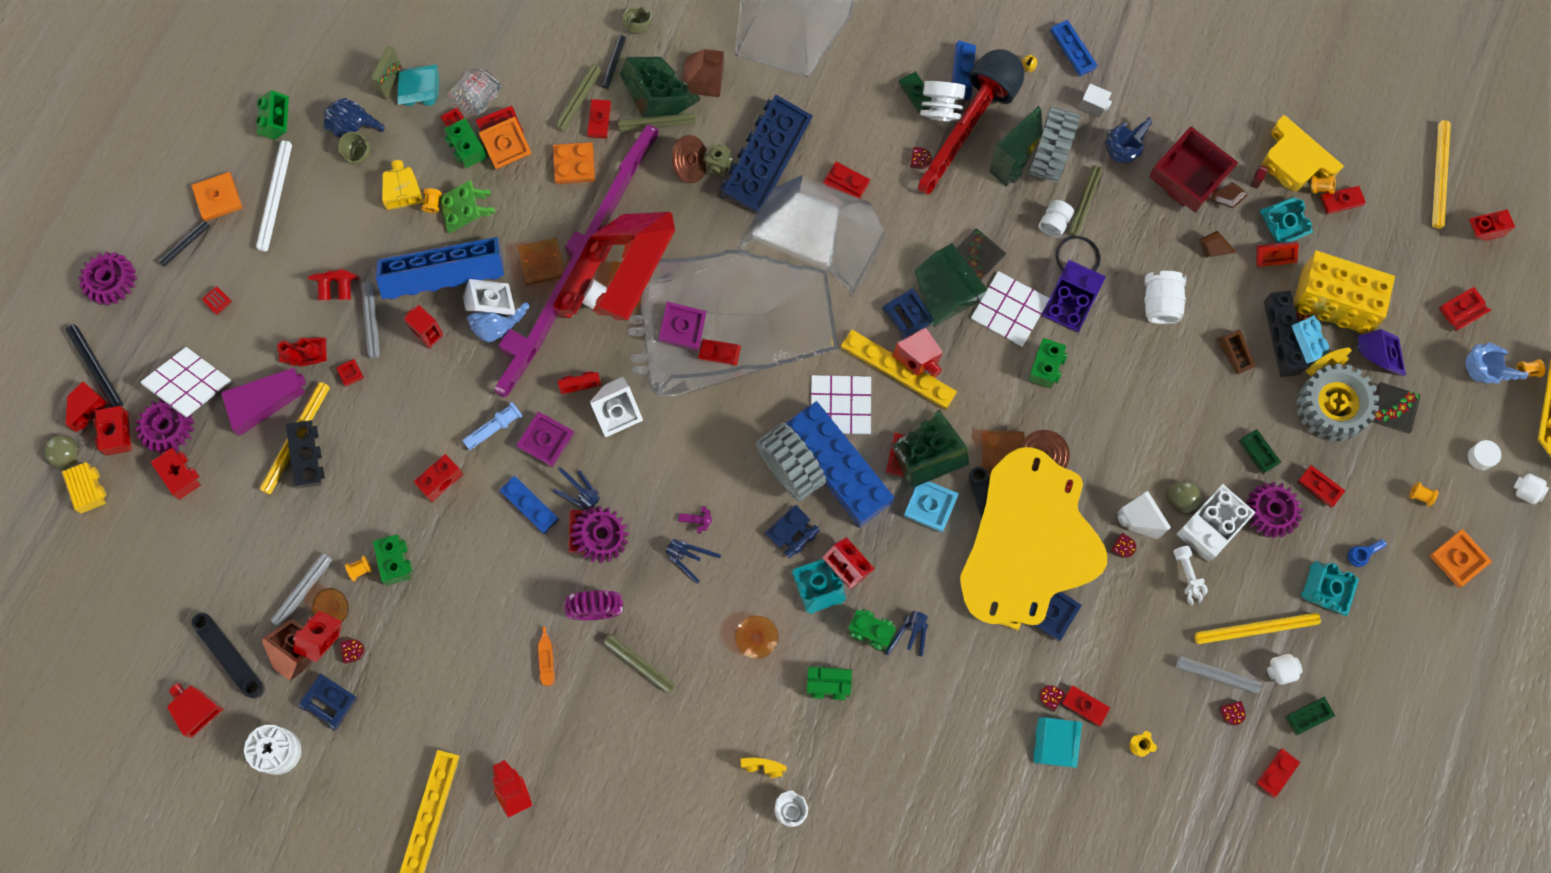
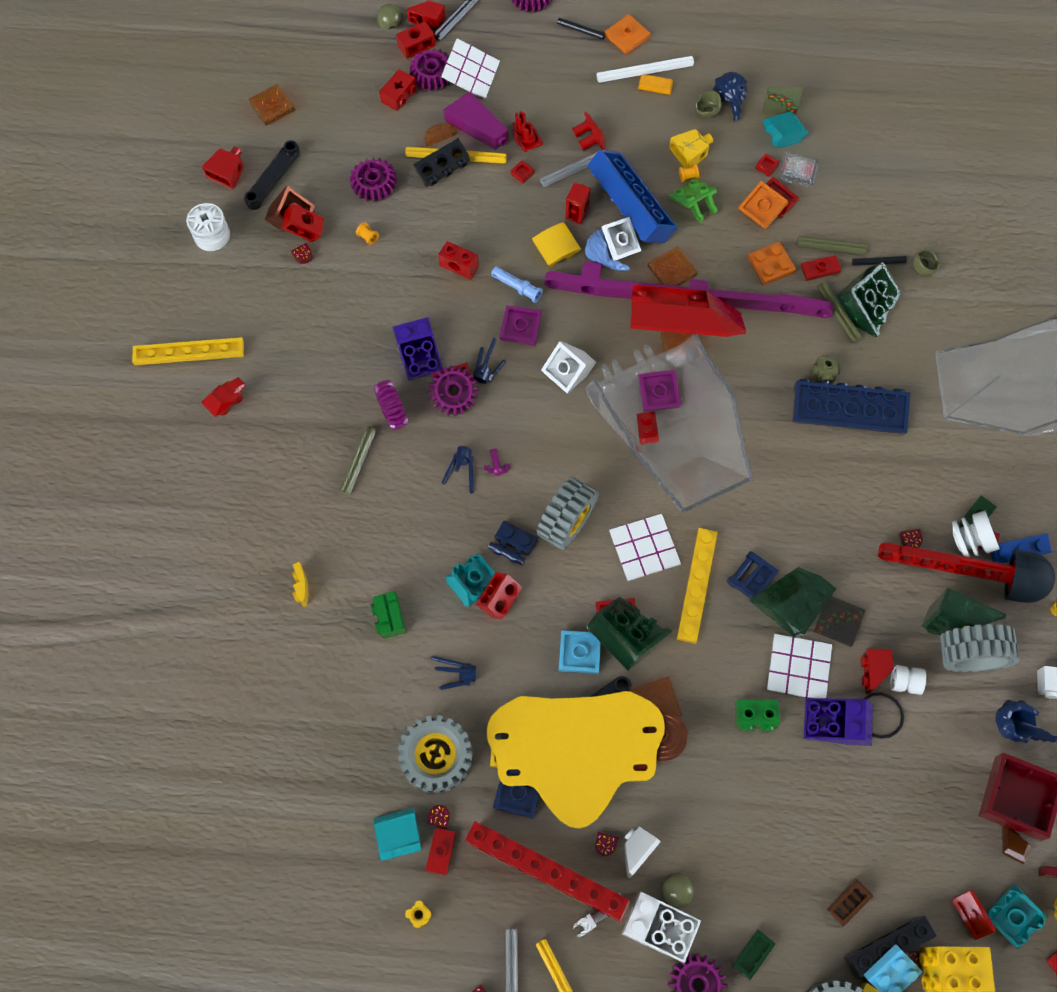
camera: 75 degrees right, 5 degrees down
(84, 487) = (366, 39): yellow brick -> none
(125, 628) = (271, 104): none -> clear orange plate
(216, 300) = (544, 65): red tile -> none
(255, 447) = (438, 133): none -> clear orange tile
(272, 114) = (711, 40): green brick -> none
(298, 548) = (363, 179): none -> magenta gear
(299, 192) = (655, 84): none -> light orange tile
(301, 590) = (338, 203): light grey axle -> none
(331, 602) = (332, 225): clear orange piece -> none
(333, 696) = (263, 252): dark blue plate -> none
(392, 559) = (380, 252): green brick -> none
(460, 368) = (556, 244): none -> yellow slope
(465, 143) = (748, 176): green brick -> none
(528, 557) = (417, 348): none -> dark purple slope
(529, 504) = (462, 334): blue plate -> none
(546, 660) = (339, 390): orange piece -> none
(573, 384) = (575, 328): red plate -> none
(688, 159) = (813, 343): copper shield -> none
(704, 72) = (904, 333): copper slope -> none
(756, 626) = (405, 535): clear orange dish -> none
(791, 809) = (270, 617): white hair -> none
(820, 228) = (782, 461): clear windscreen -> none
(845, 469) = (586, 559): blue brick -> none
(847, 180) = (856, 483): red plate -> none
(871, 630) = (446, 634): green brick -> none
(919, 353) = (716, 594): torso -> none
(1005, 661) = (414, 747): none -> light grey wheel
(1036, 241) = (877, 666): none -> red slope
(1085, 200) = (941, 704): olive axle -> none
(1138, 608) = (548, 871): none -> red brick
(1165, 297) = (872, 808): white piece -> none
(1215, 245) = (954, 847): reddish brown piece -> none

